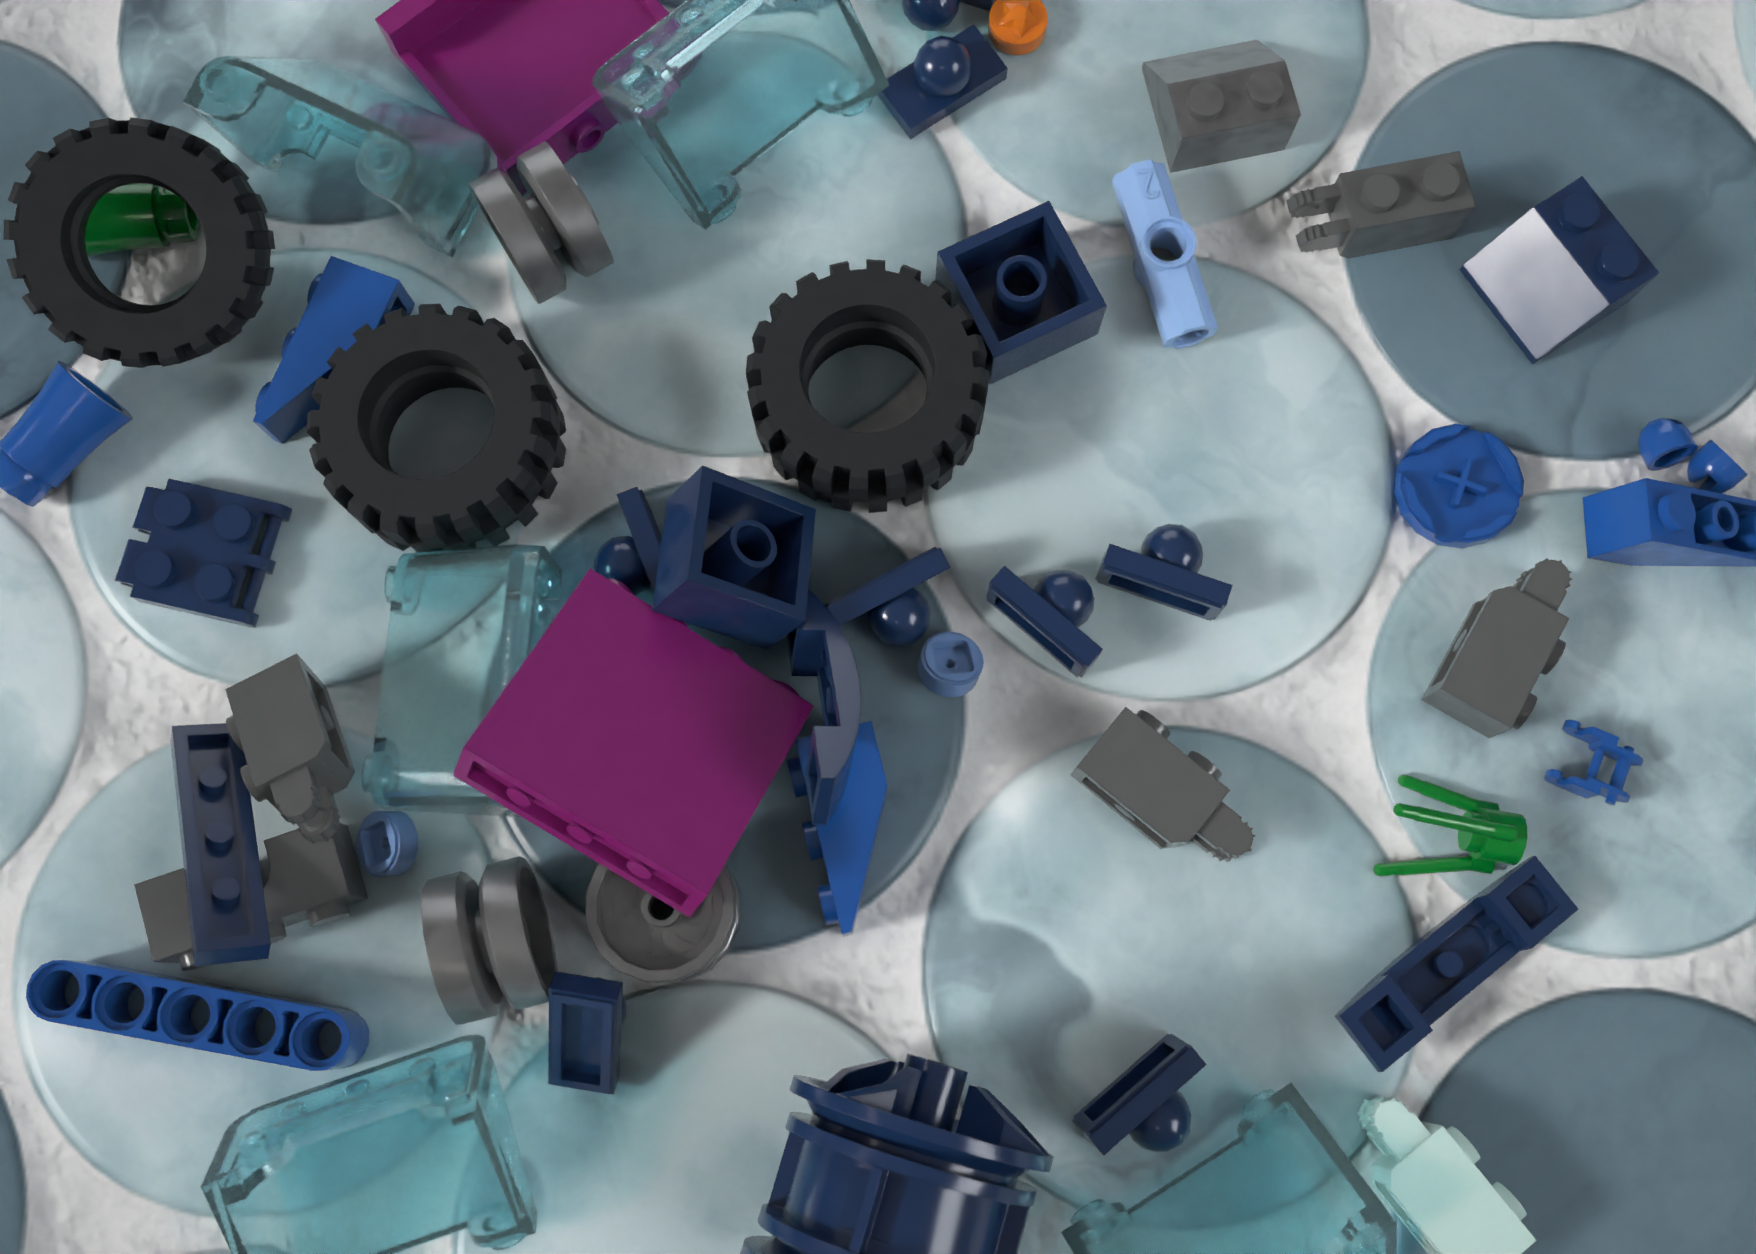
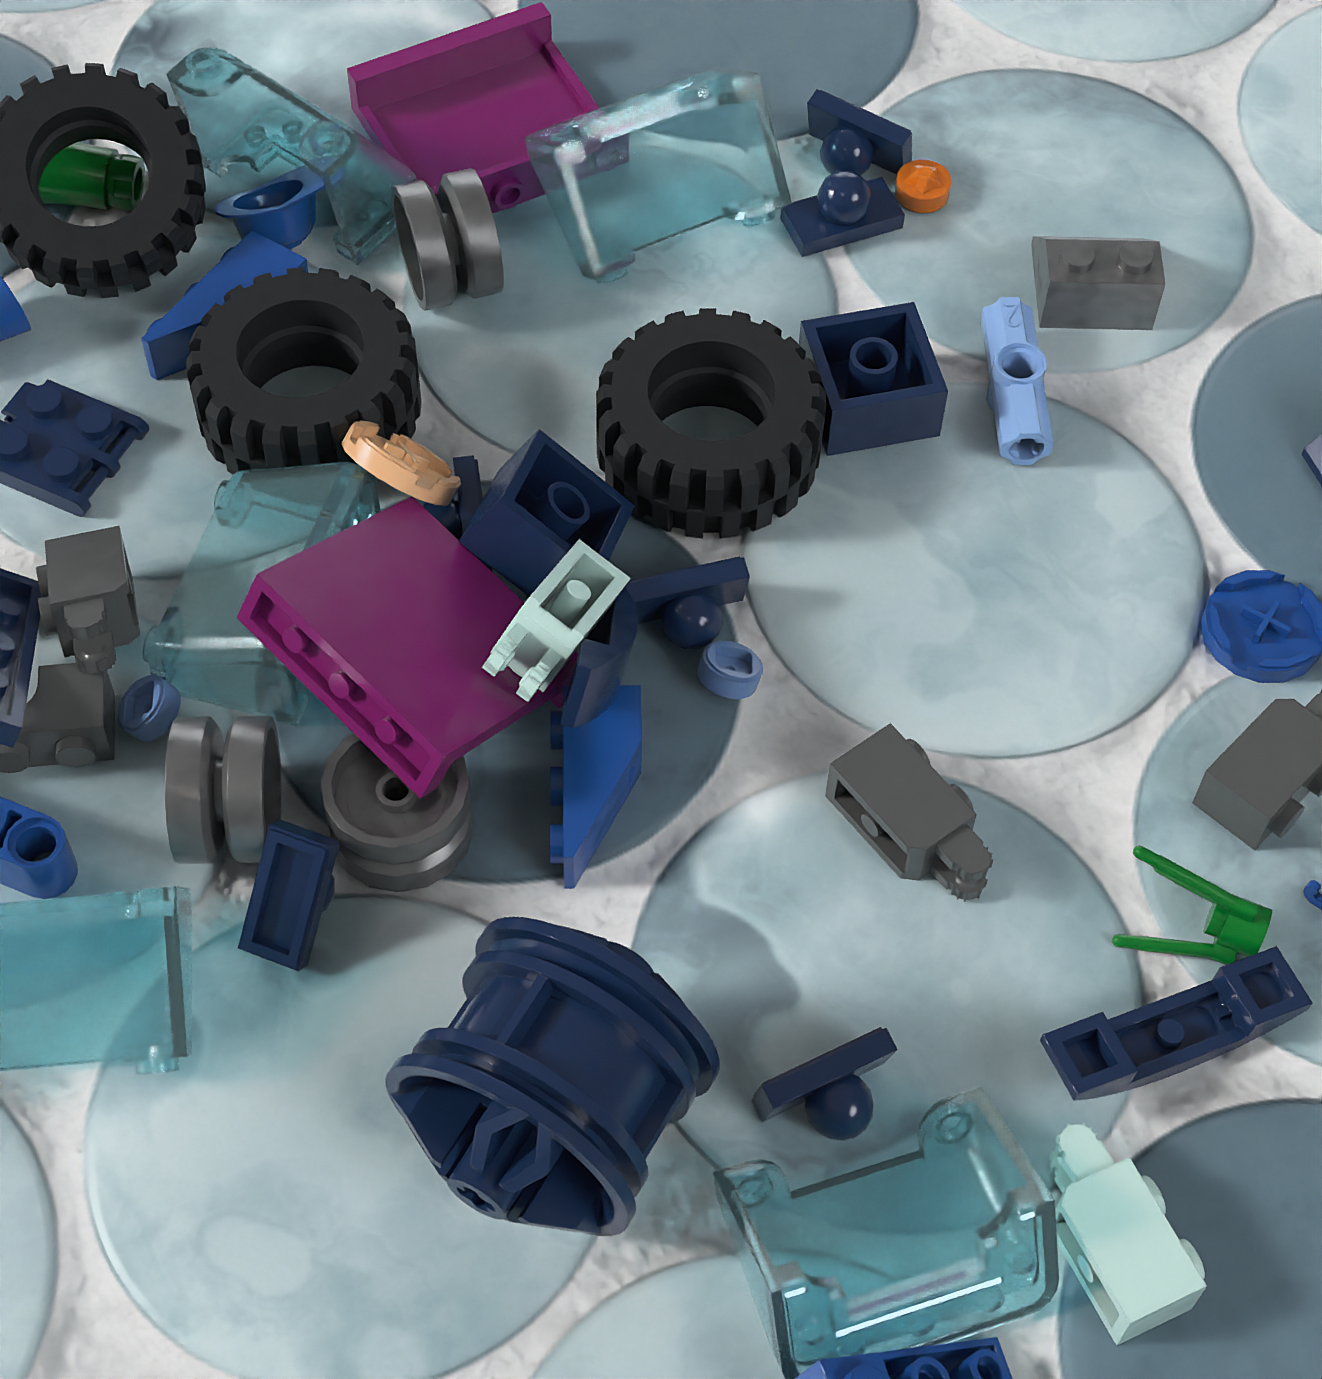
camera: 10 degrees right, 20 degrees down
(340, 219) = (278, 209): none -> blue piece
(567, 528) = (401, 463): none -> light nougat tile
(777, 697) = (557, 619): none -> light aqua hinge
(1050, 614) = (836, 646): dark blue tile -> none
(1166, 572) = (956, 635): dark blue tile -> none
(1387, 207) = (1234, 380): dark grey hinge -> none

